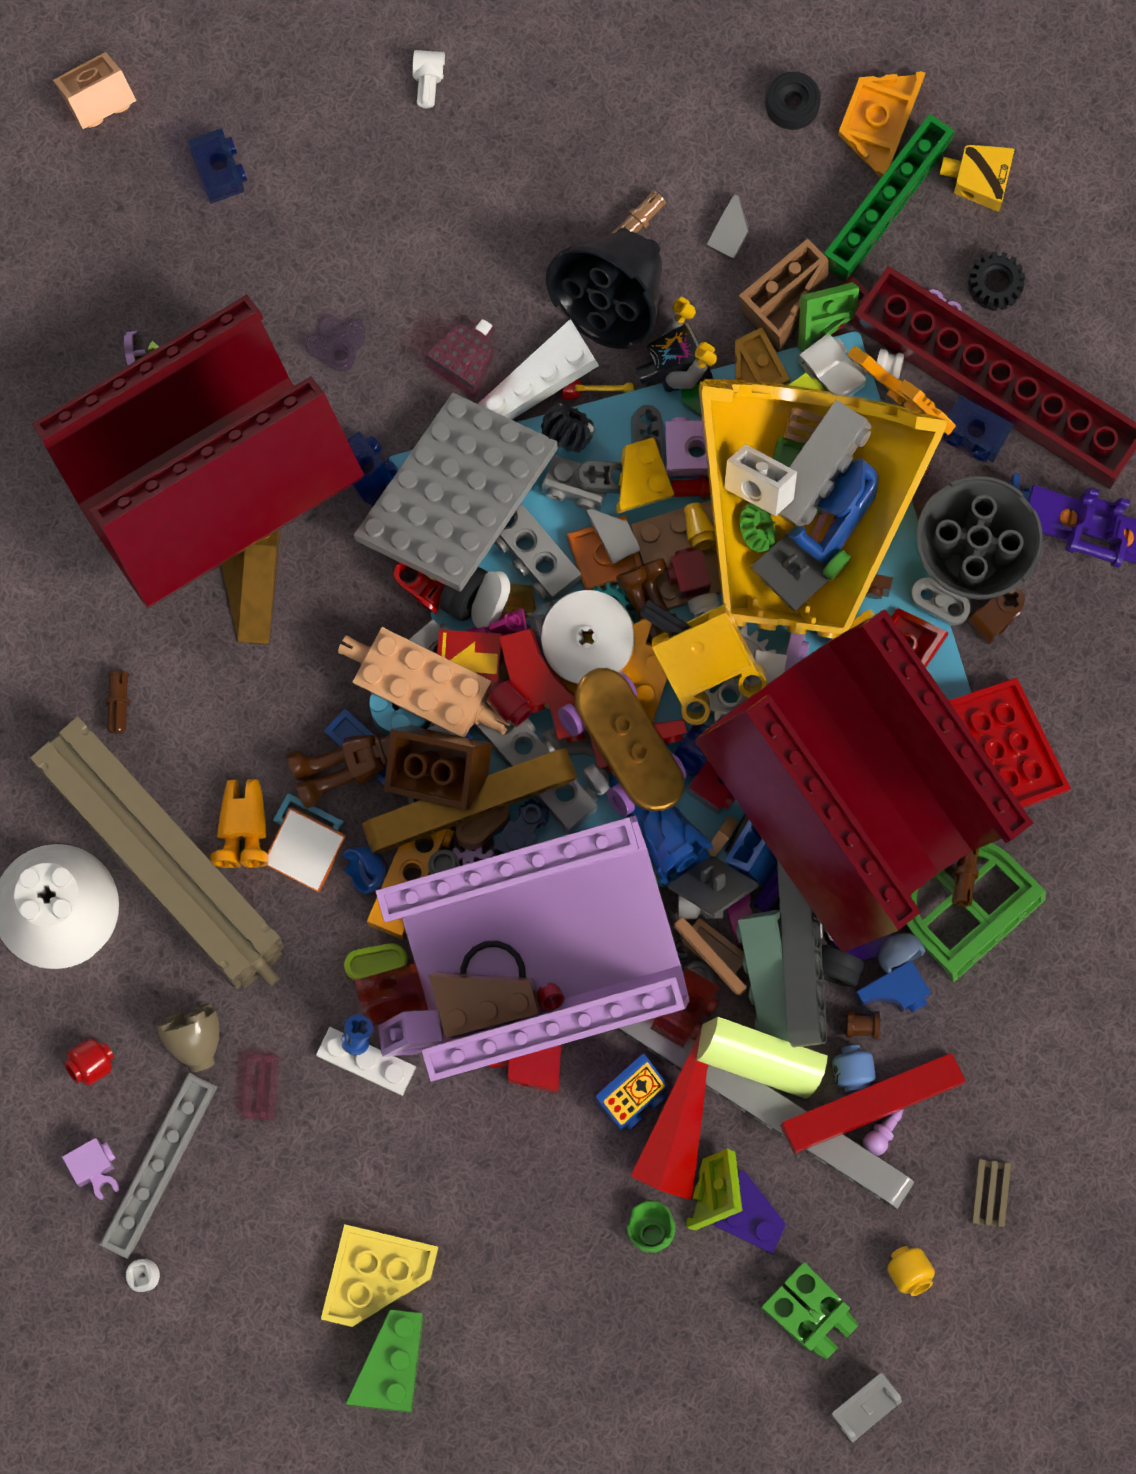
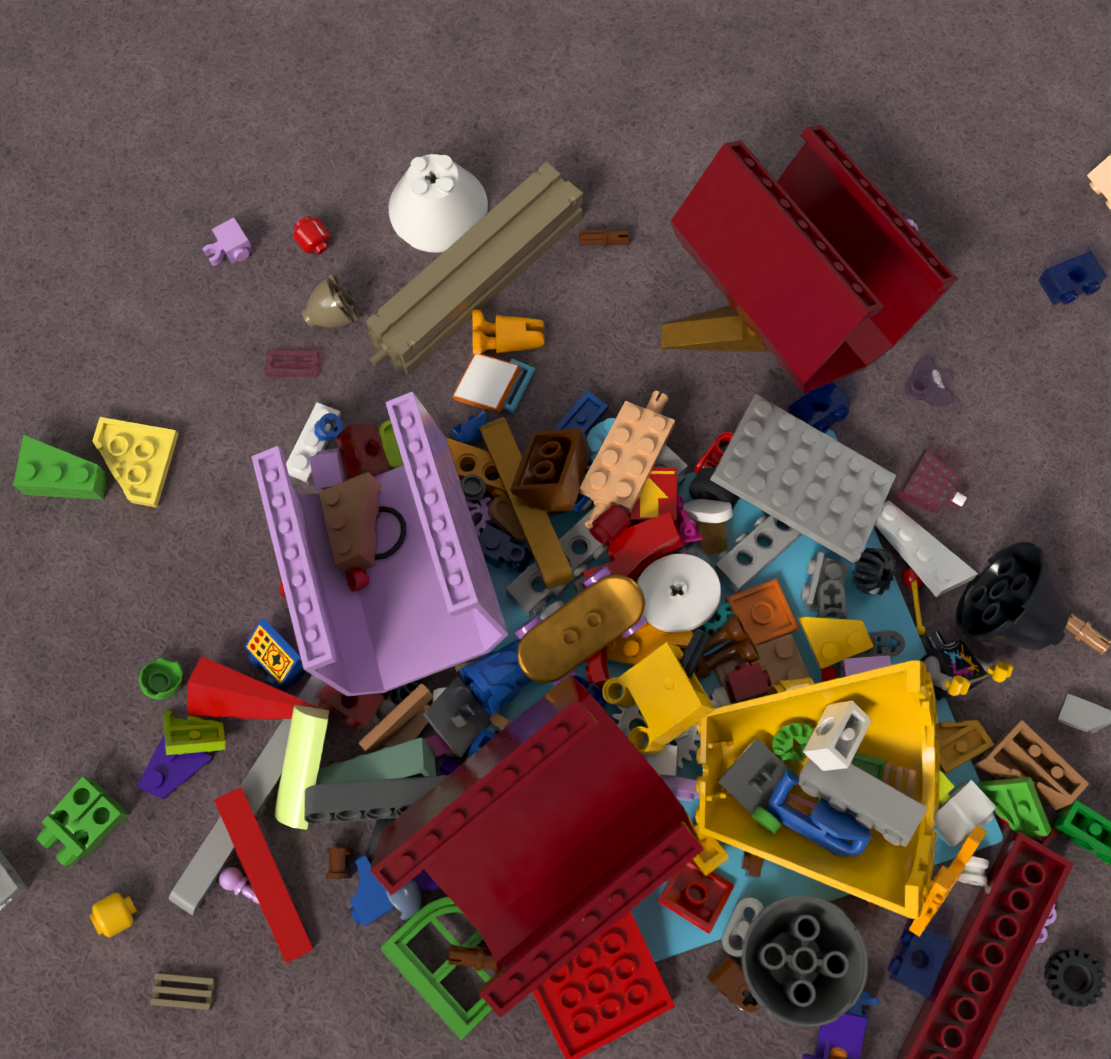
camera: 90 degrees right, 5 degrees down
(142, 1275) = (144, 286): white tile -> none
(158, 1166) = (231, 293): light grey tile -> none
(364, 757) = (559, 415): reddish brown piece -> none
(614, 534) = (778, 616): light grey slope -> none
(853, 1069) = (298, 856): medium blue head -> none

